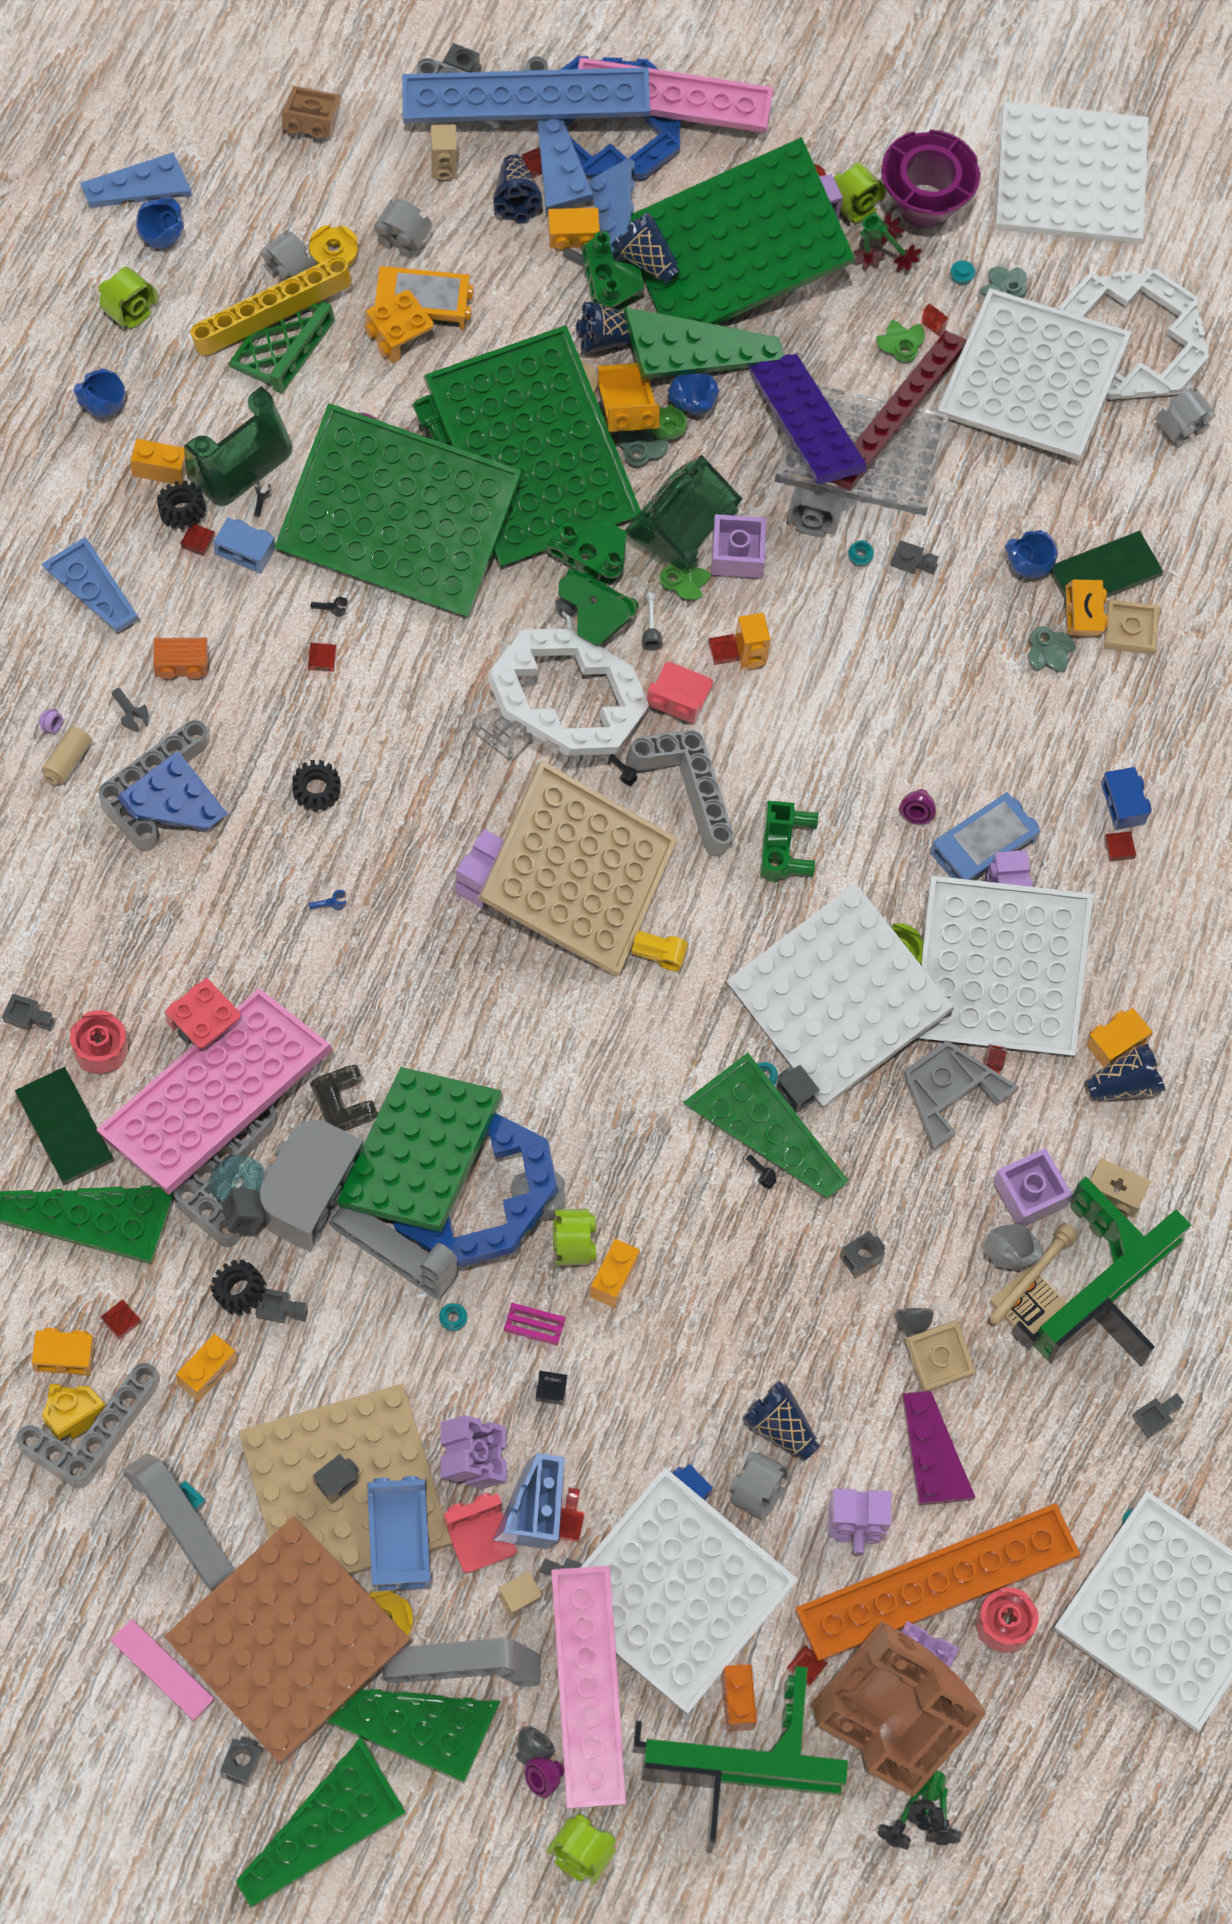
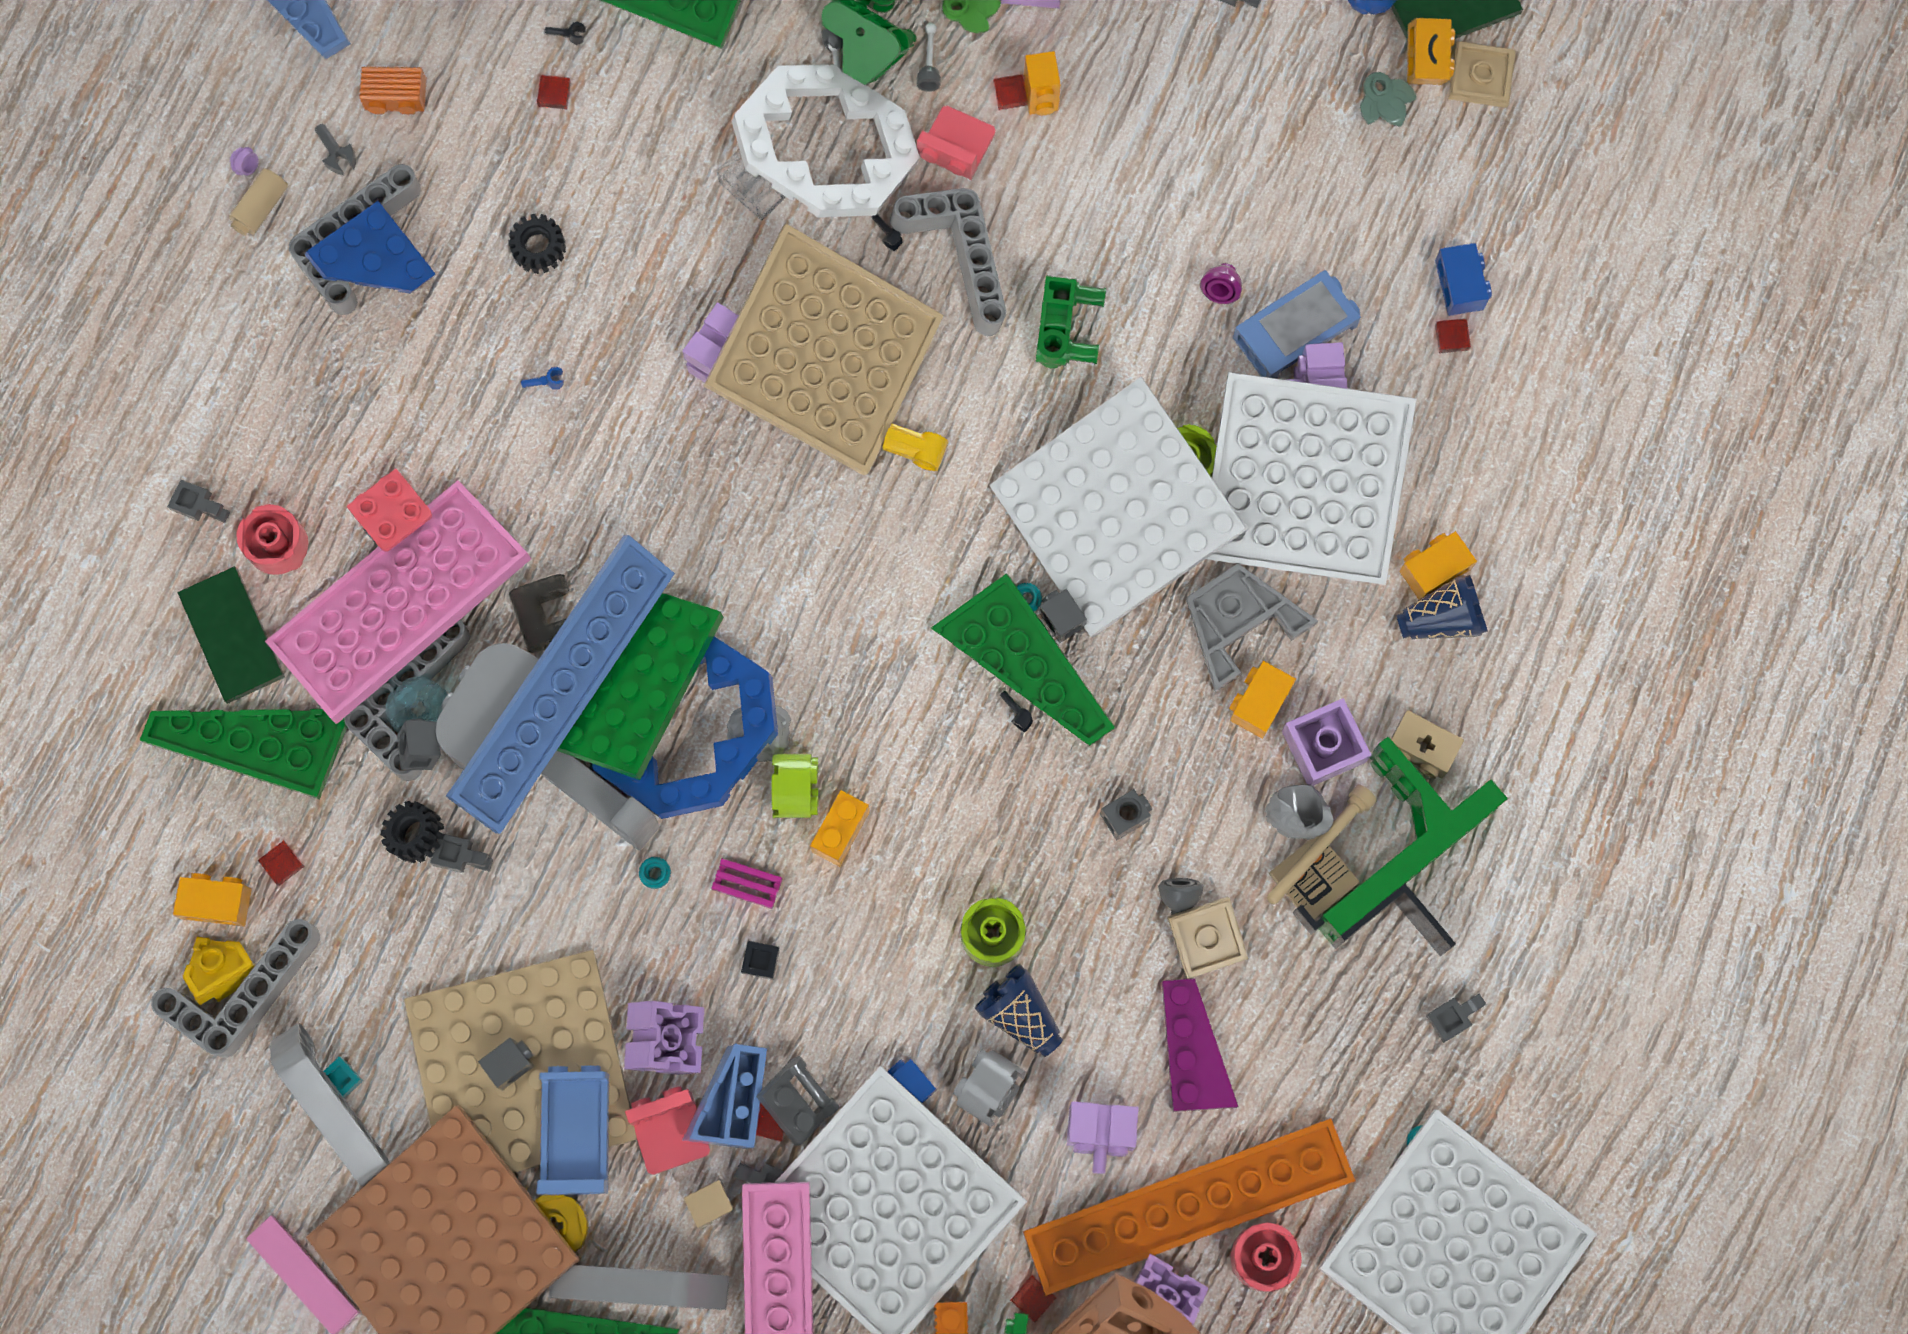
camera: 10 degrees right, 10 degrees up
(206, 1367) = (371, 925): light orange brick -> none
(368, 1153) = (560, 685): none -> medium blue plate
(585, 1506) = (790, 1108): none -> dark grey plate
(758, 1370) = (993, 913): none -> lime brick
(974, 1154) = (1262, 699): none -> light orange brick
(995, 1057) = (1293, 585): clear red piece -> none

